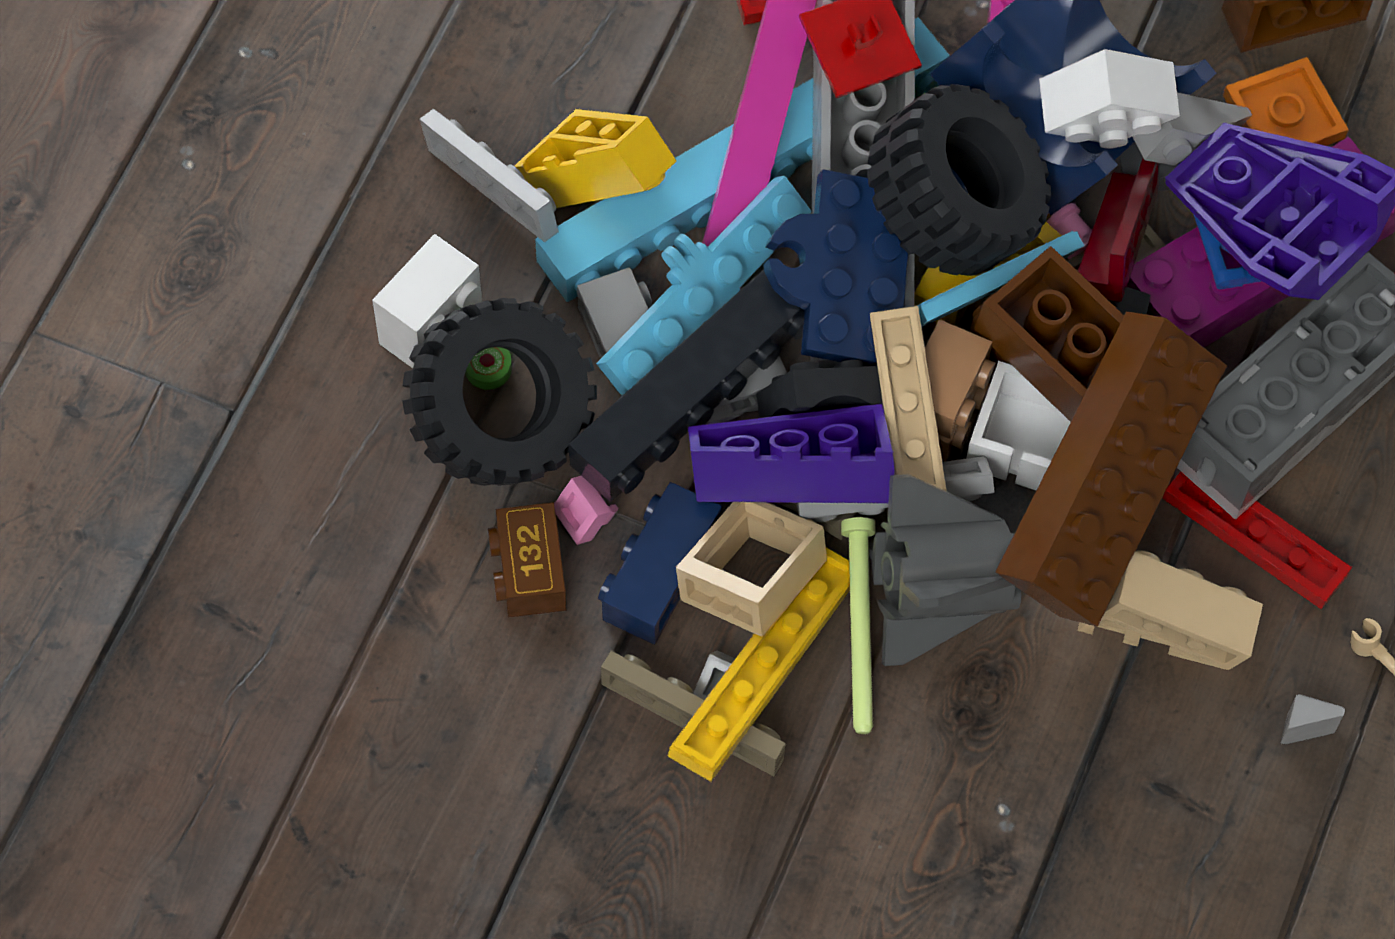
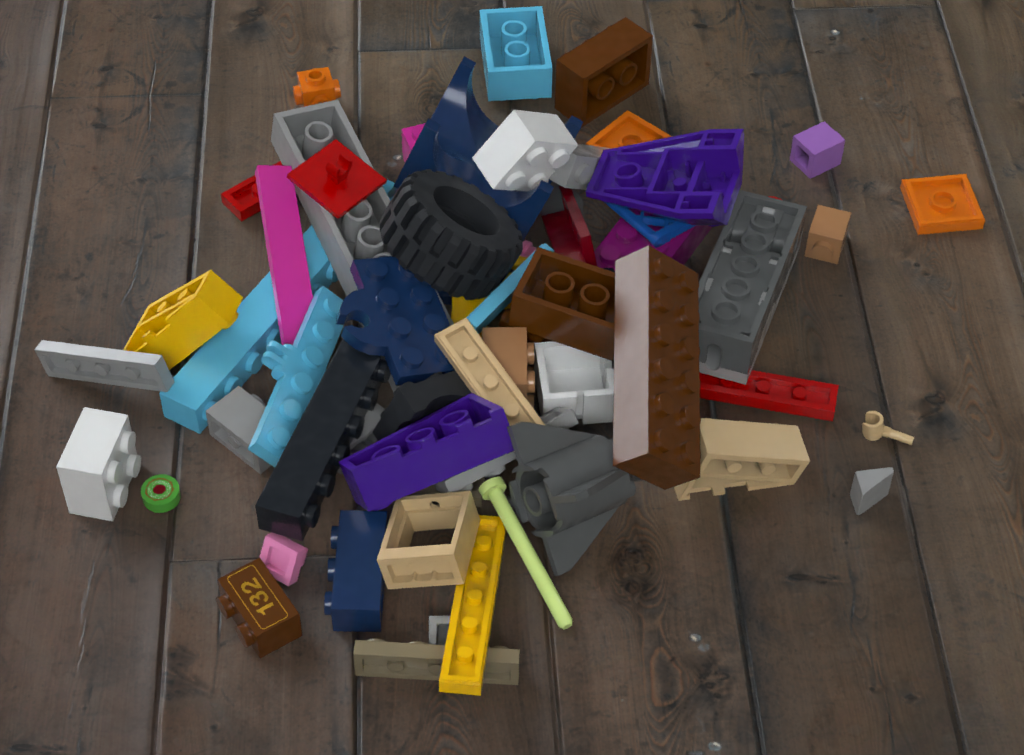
camera: 25 degrees left, 15 degrees down
(558, 381) = (157, 531): black tyre -> none

